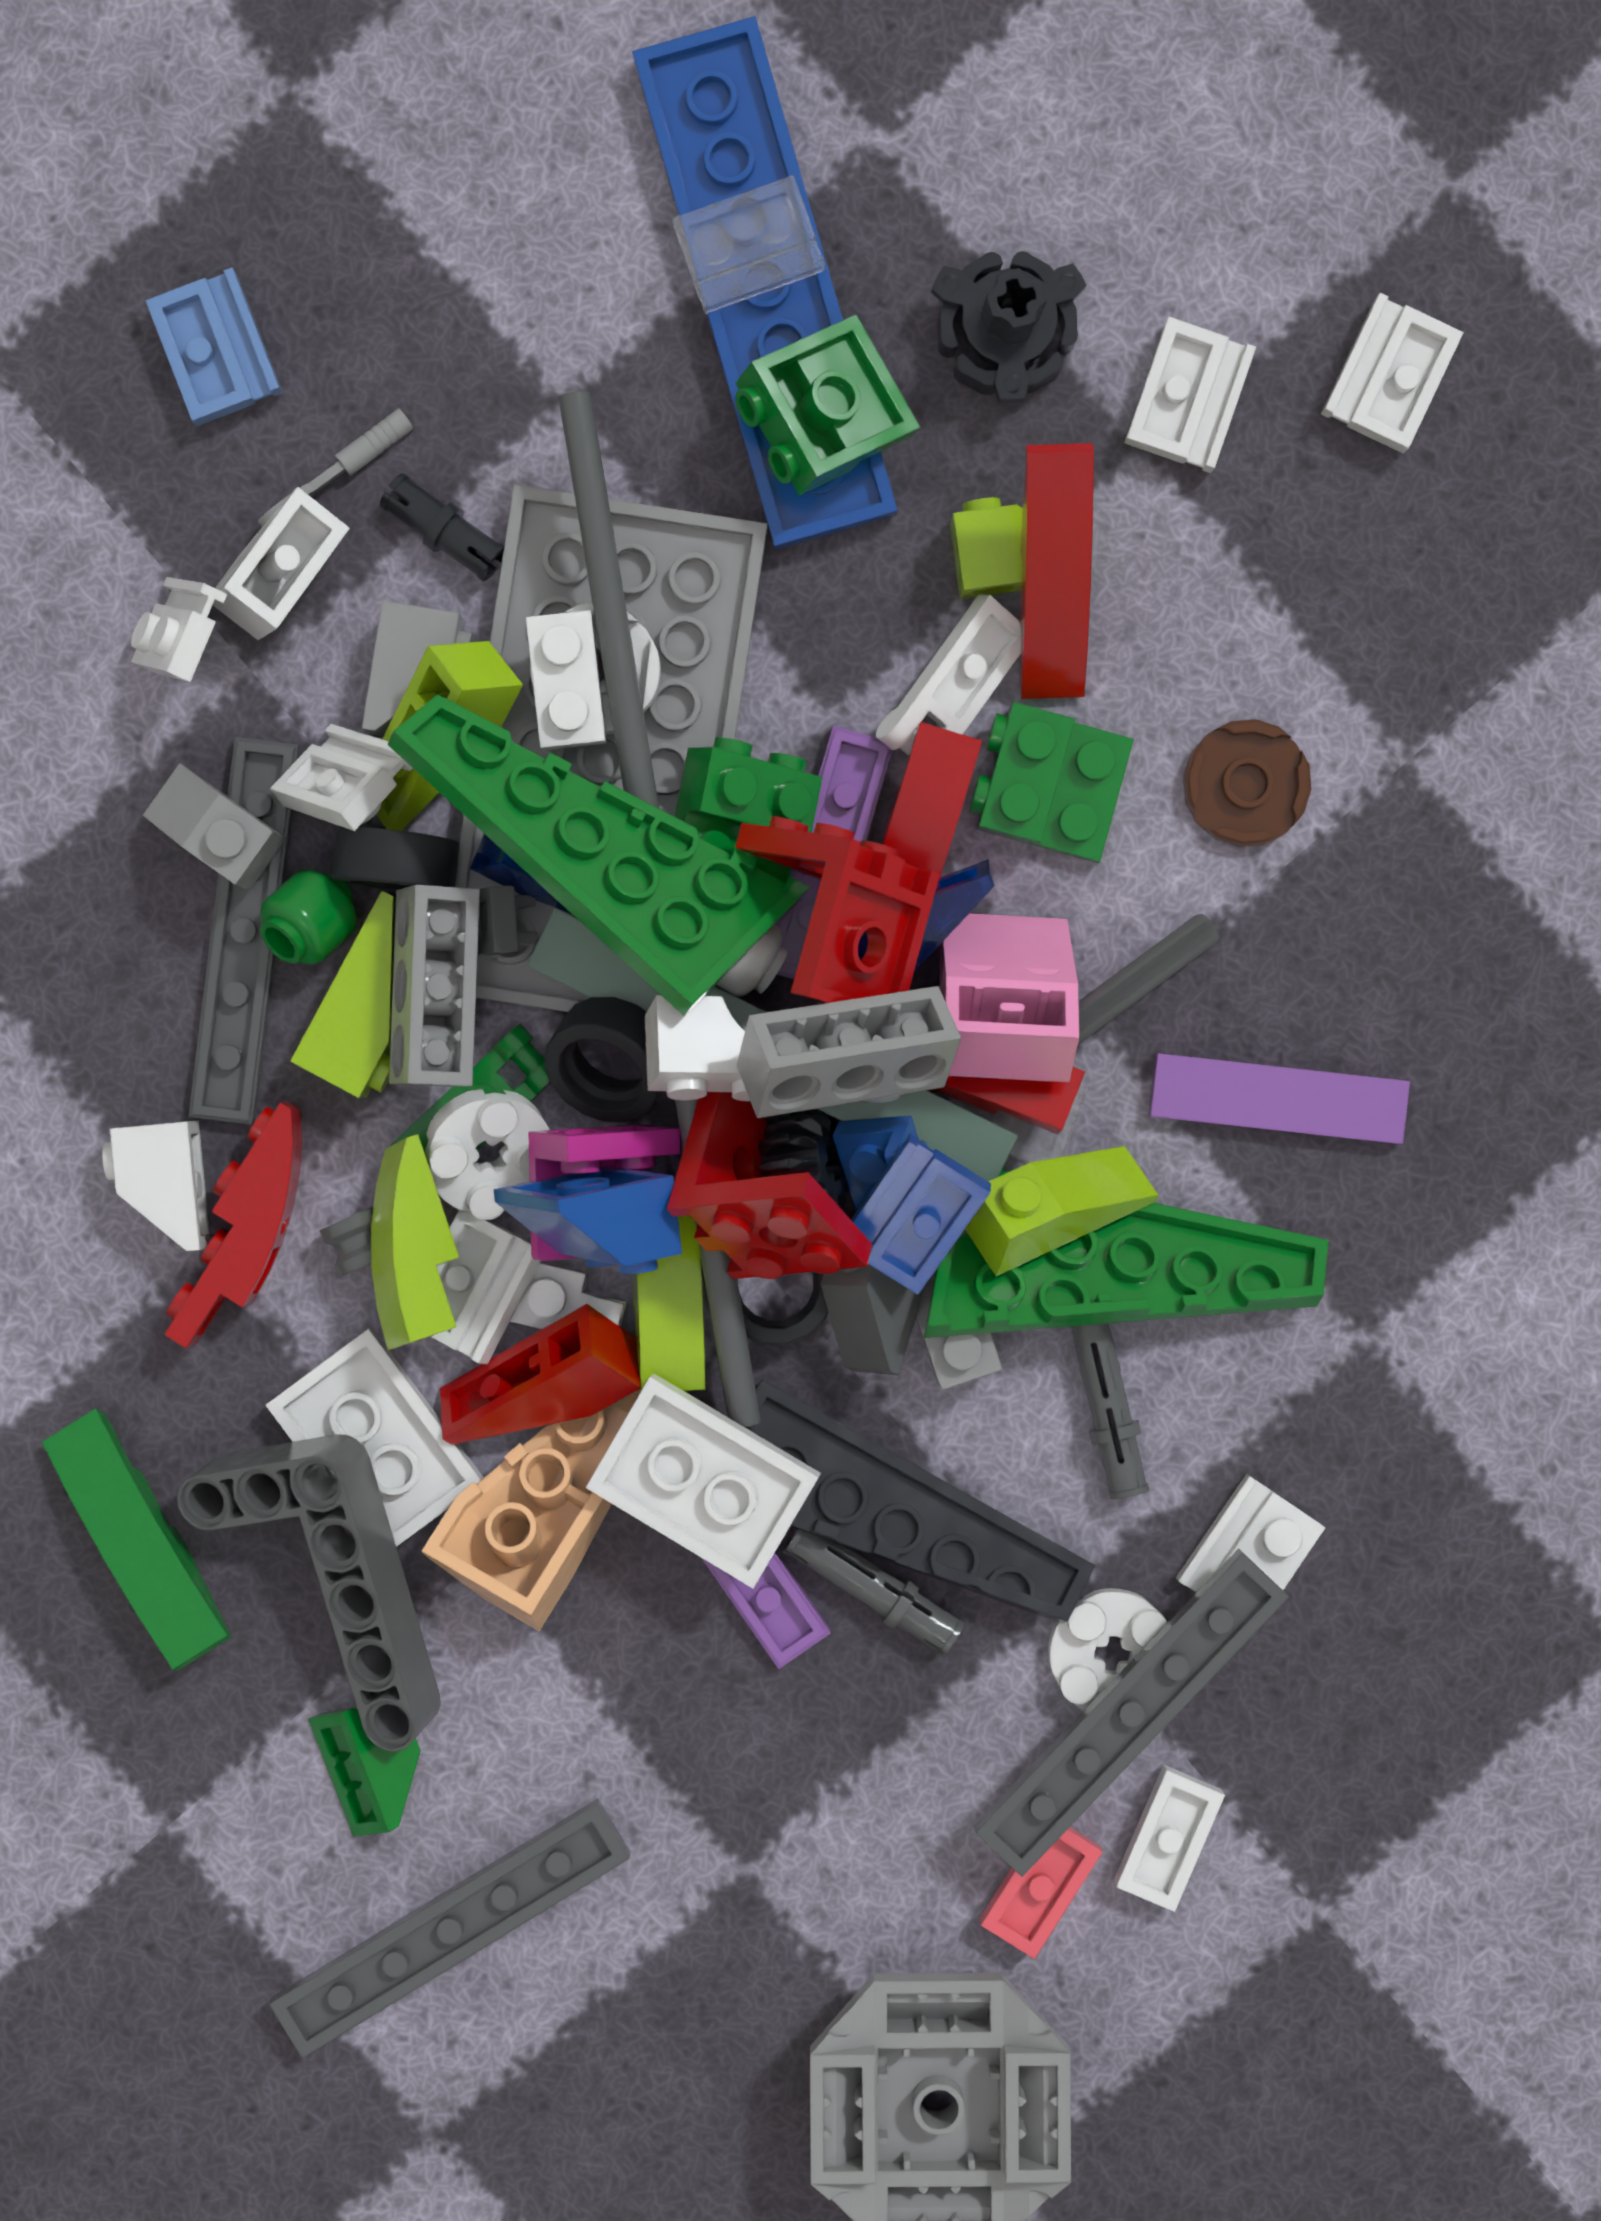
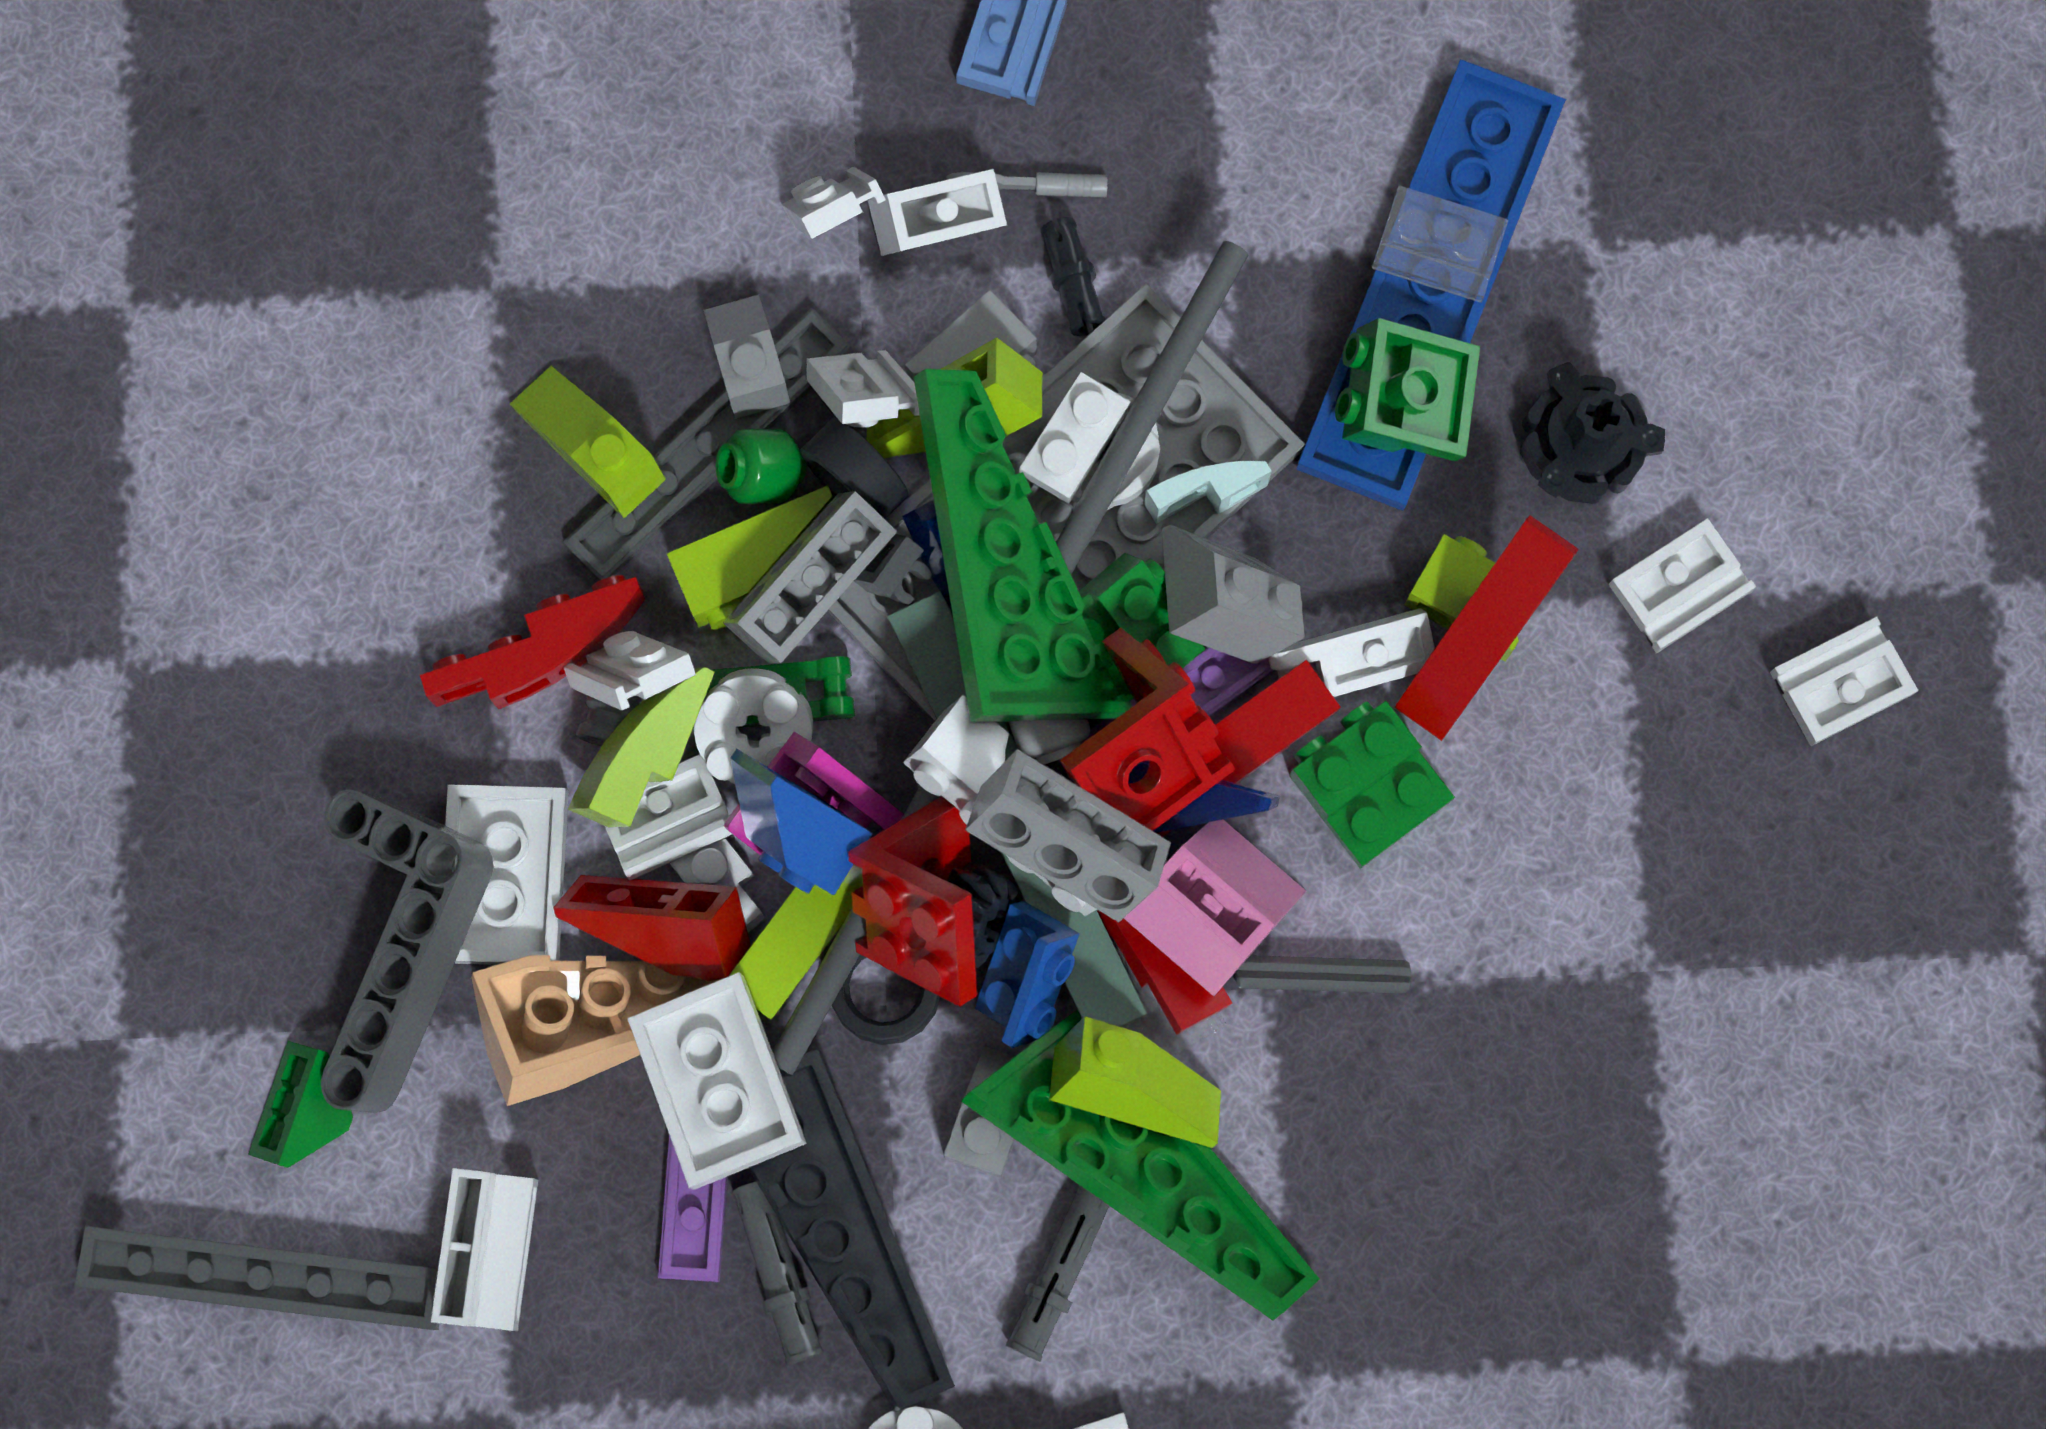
camera: 35 degrees right, 10 degrees down
(136, 1540) = (276, 810): green slope -> none
(137, 1012) = (590, 441): none -> lime slope
(162, 1178) = (510, 567): white slope -> none
(342, 1187) = (629, 667): none -> white plate
(584, 1085) = (858, 724): black tyre -> none
(617, 1762) = (484, 1250): none -> white piece
(725, 621) = (1222, 484): none -> light aqua slope
(809, 717) = (1228, 598): none -> light grey slope
(870, 1318) = (948, 1051): dark grey slope -> none
(918, 1212) = (1028, 1000): blue plate -> none
(1225, 795) = (1500, 909): reddish brown tile -> none
(1279, 1098) = (1363, 1145): medium lavender tile -> none

